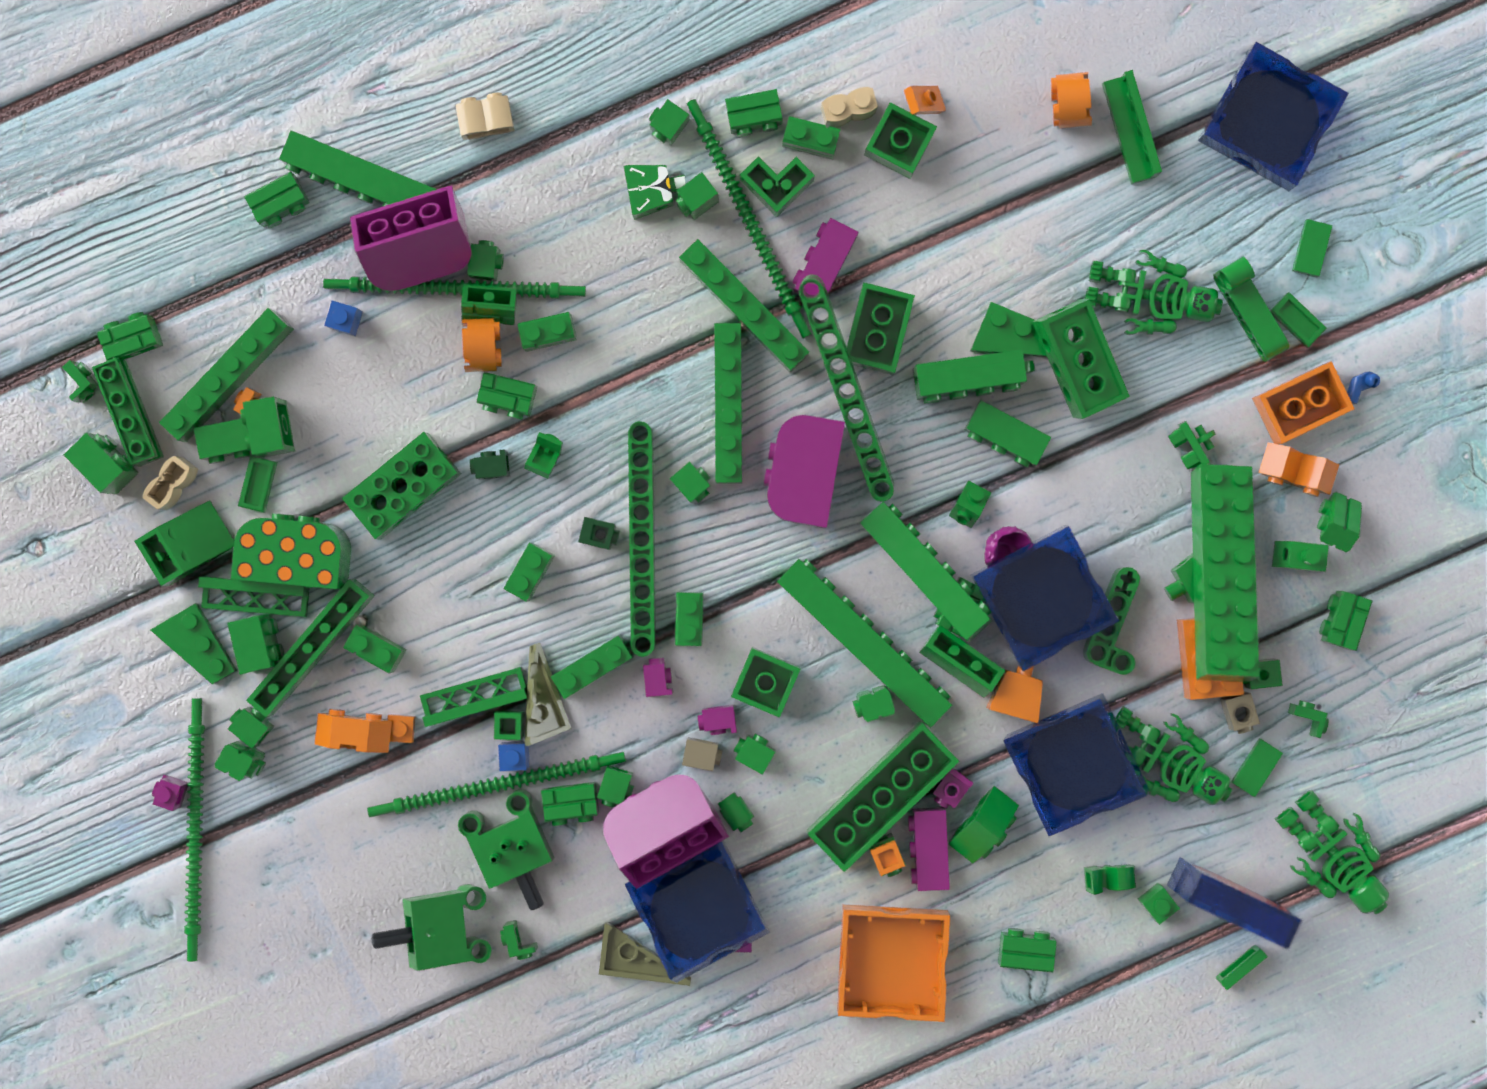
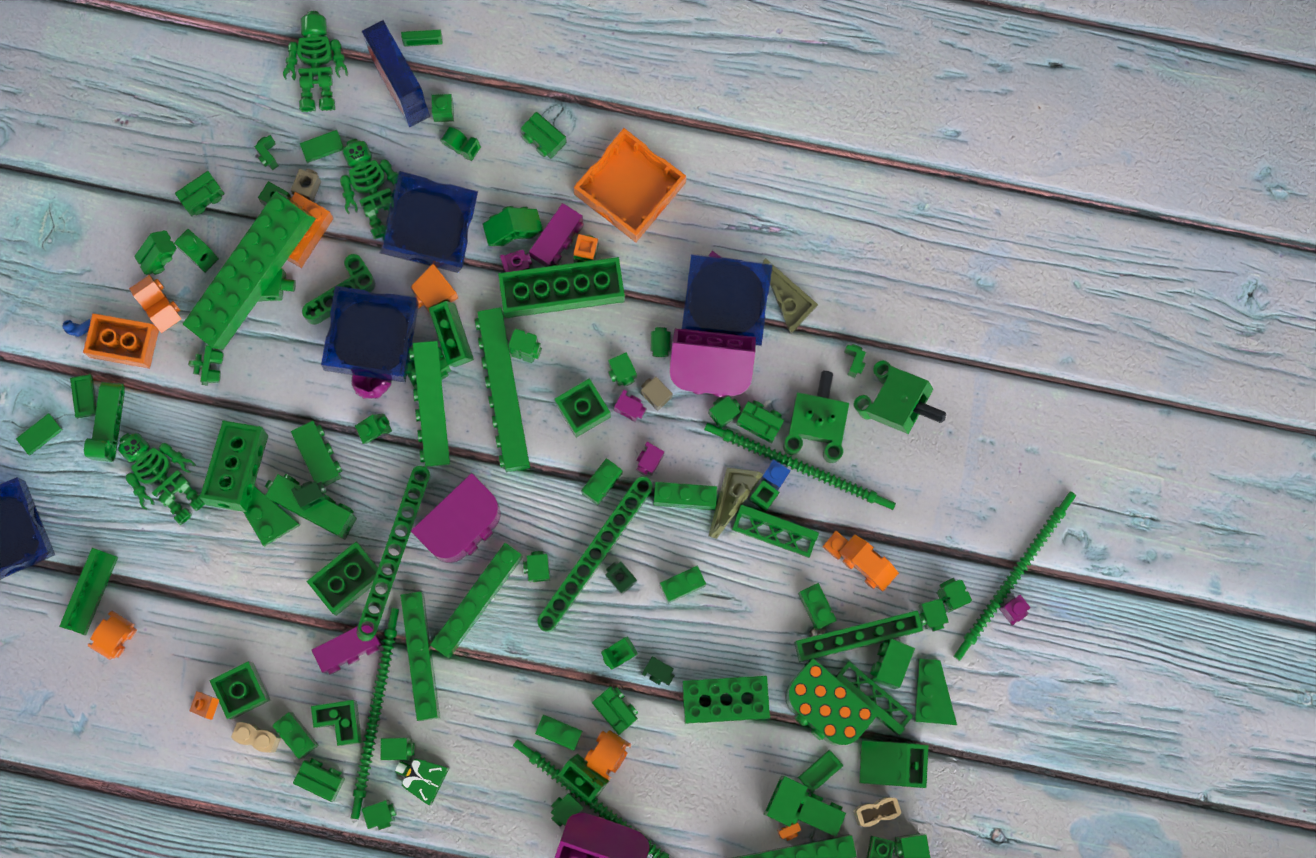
camera: 150 degrees left, 10 degrees down
(343, 318) = (686, 839): blue brick -> none
(976, 382) = (309, 494): none -> dark green brick

